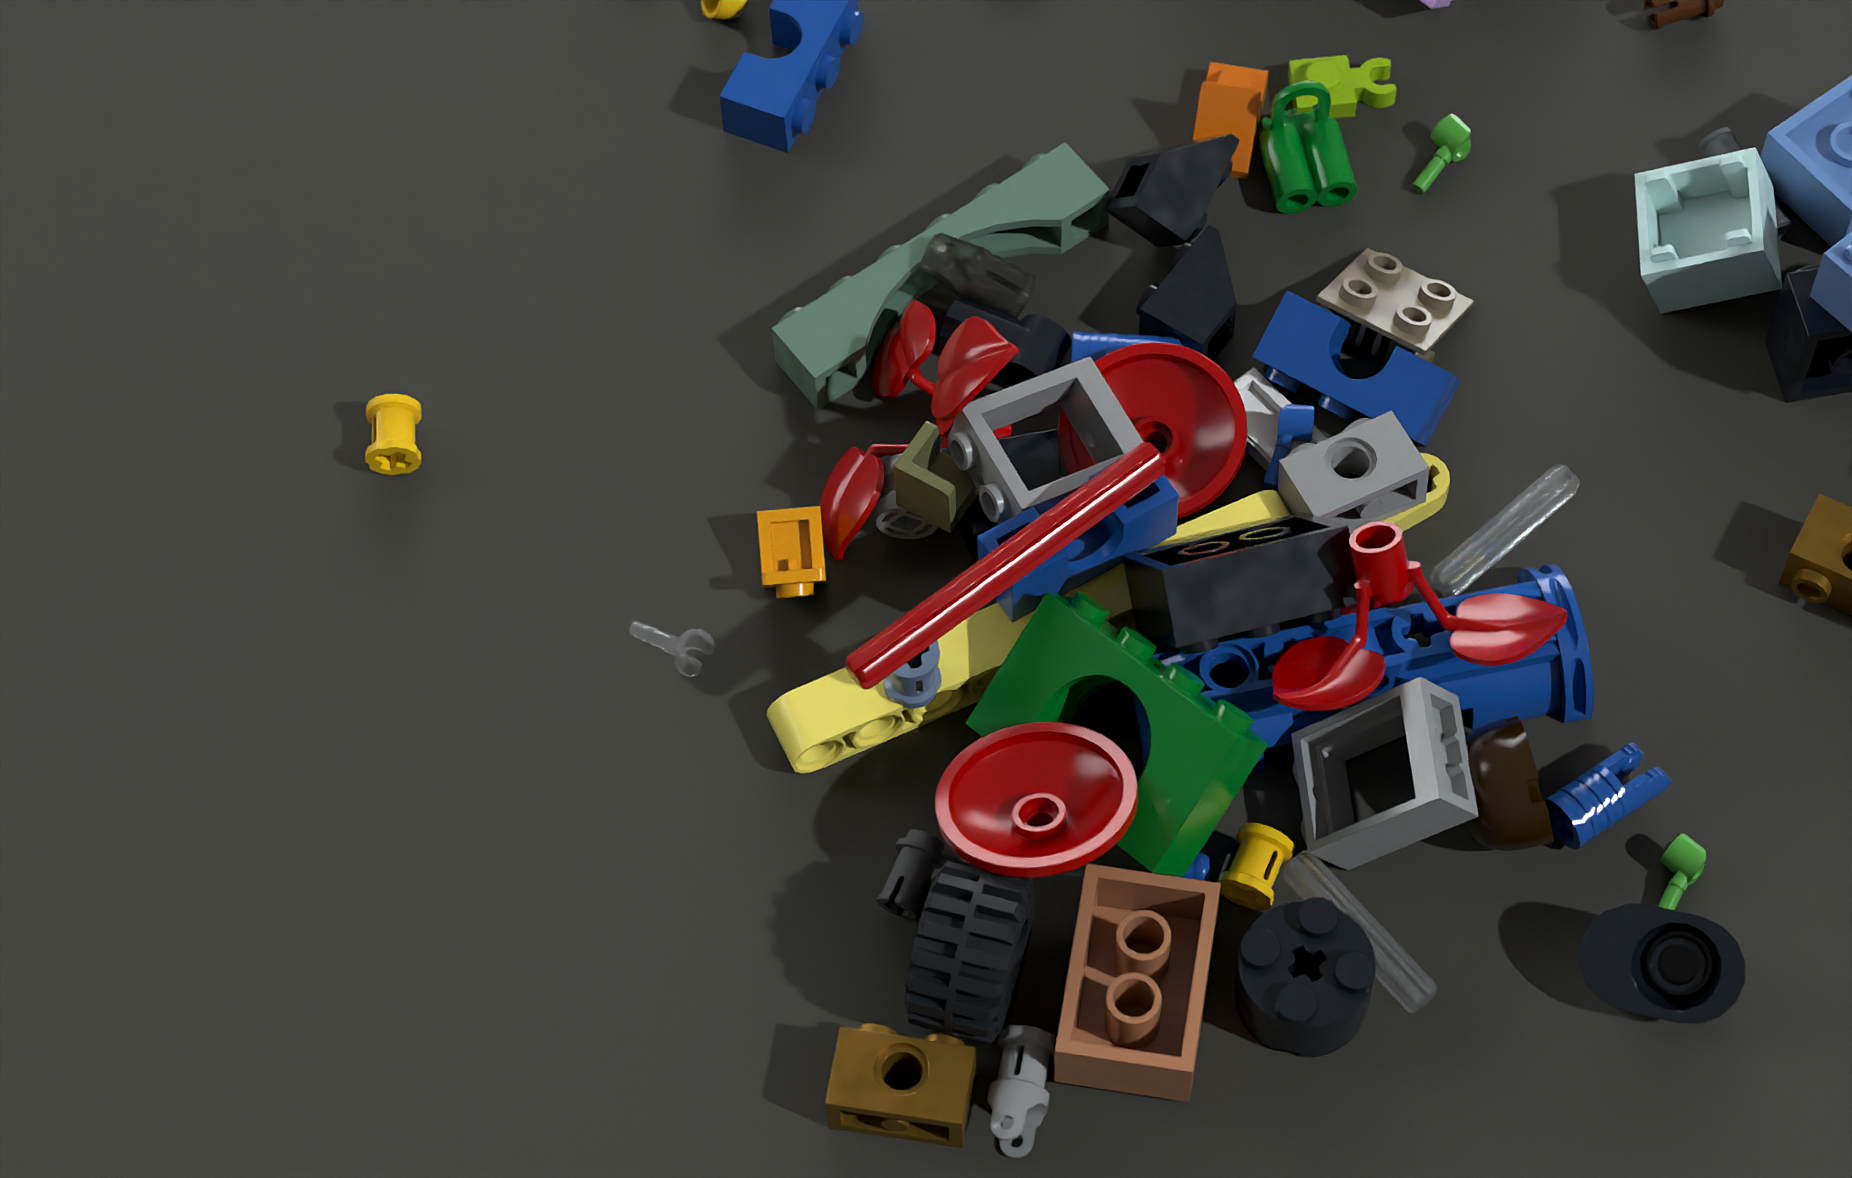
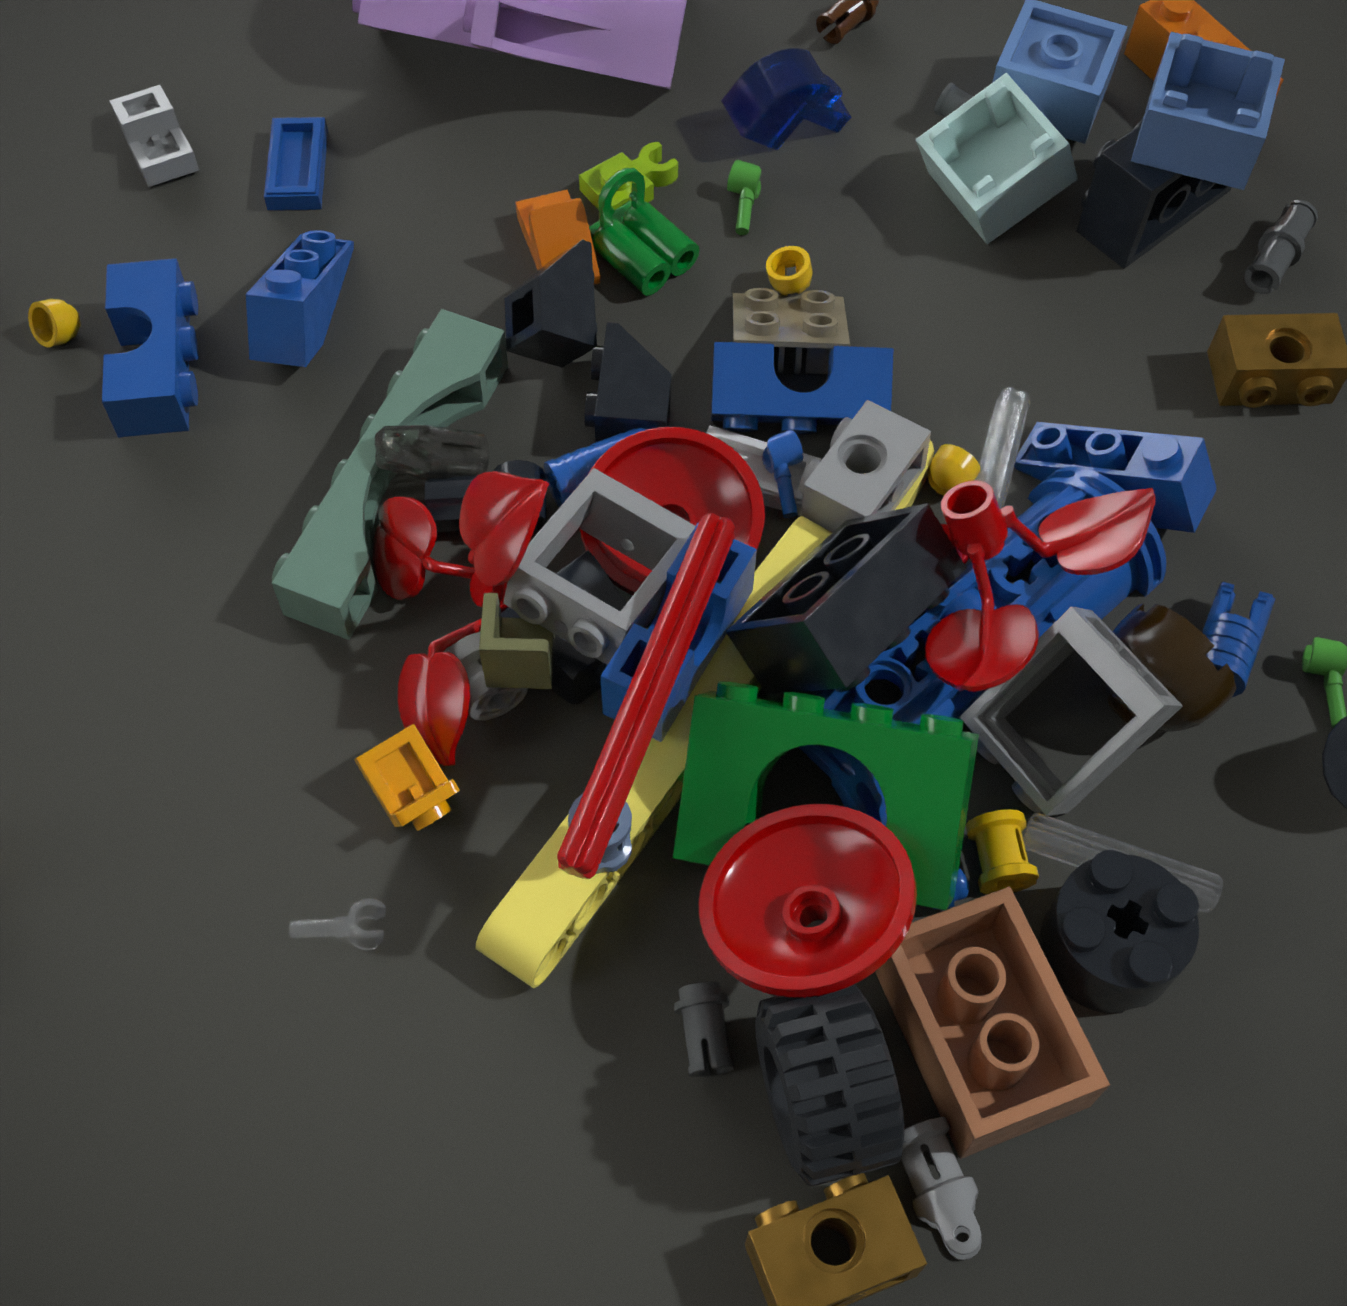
camera: 35 degrees left, 0 degrees up
(949, 69) = (296, 299): none -> blue slope
(1421, 247) = (777, 270): none -> yellow hinge
(1451, 518) = (951, 467): none -> yellow hinge
(1540, 64) = (780, 94): none -> clear blue brick
(1622, 602) = (1134, 460): none -> blue slope

